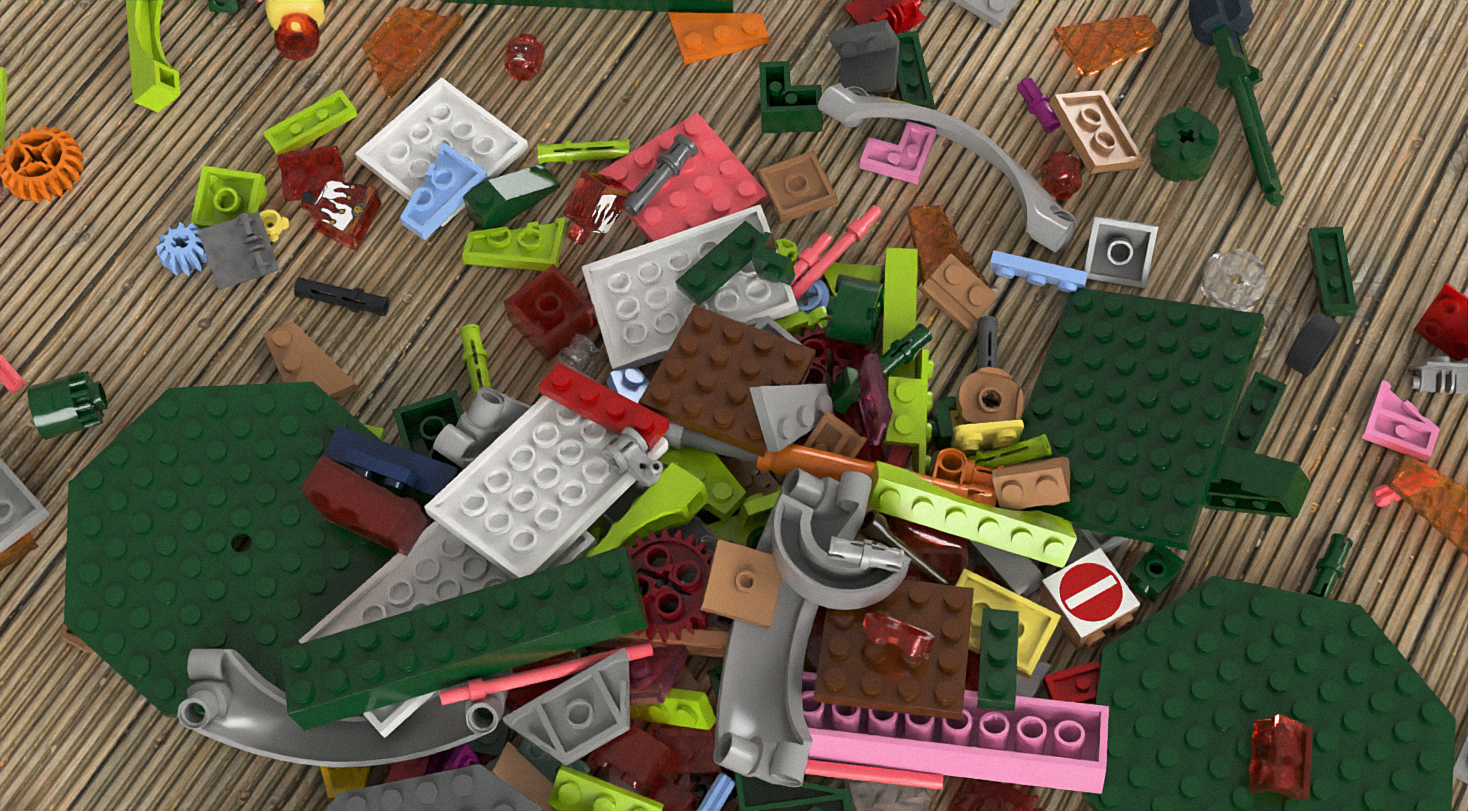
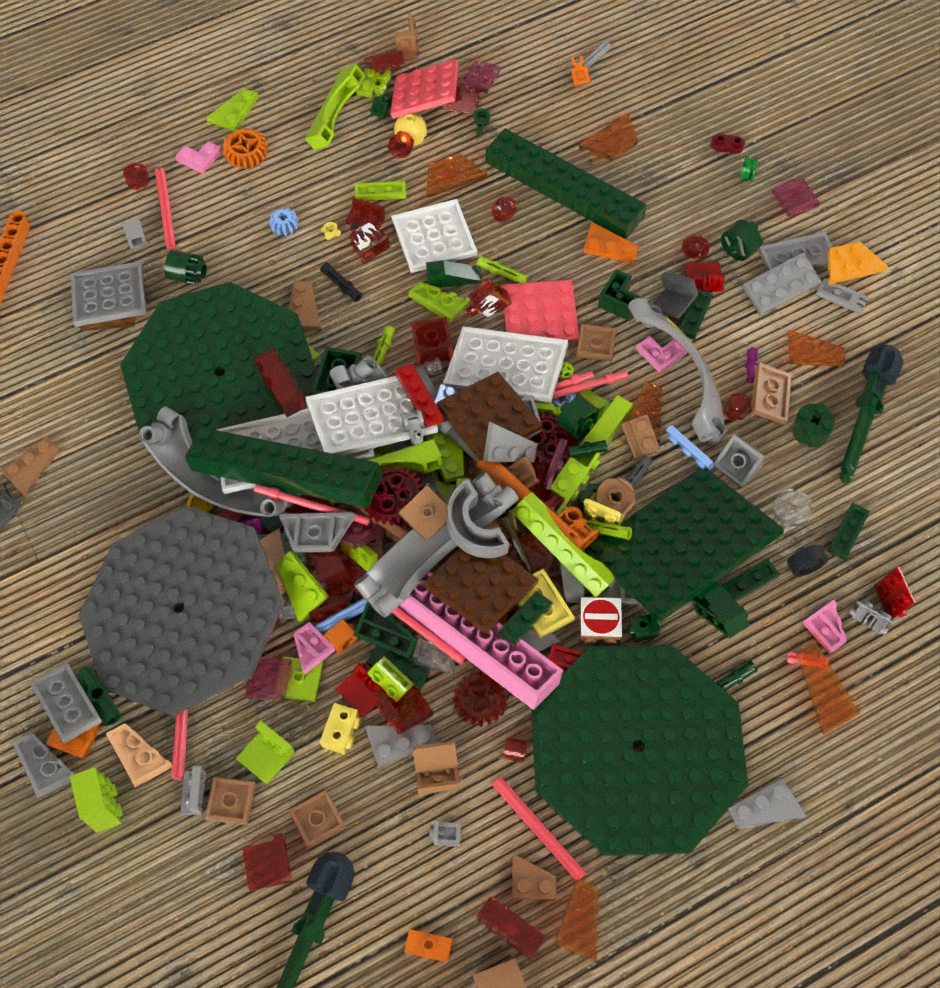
camera: 30 degrees right, 0 degrees up
(225, 195) = (317, 208): lime slope -> none
(238, 250) = (307, 235): flat silver hinge -> none
(394, 464) = (306, 369): dark blue bracket -> none
(441, 191) = (417, 255): light blue wing -> none
(667, 166) = (536, 297): dark grey pin -> none
(719, 264) = (528, 359): dark green plate -> none
(771, 264) = (549, 370): dark green bracket -> none
(845, 390) = (545, 453): dark green plate -> none
(865, 554) = (486, 528): light grey pin -> none
(884, 629) = (481, 575): clear red plate -> none
(1032, 483) = (604, 546): medium nougat bracket -> none
(1281, 757) = (639, 748): clear red bracket -> none

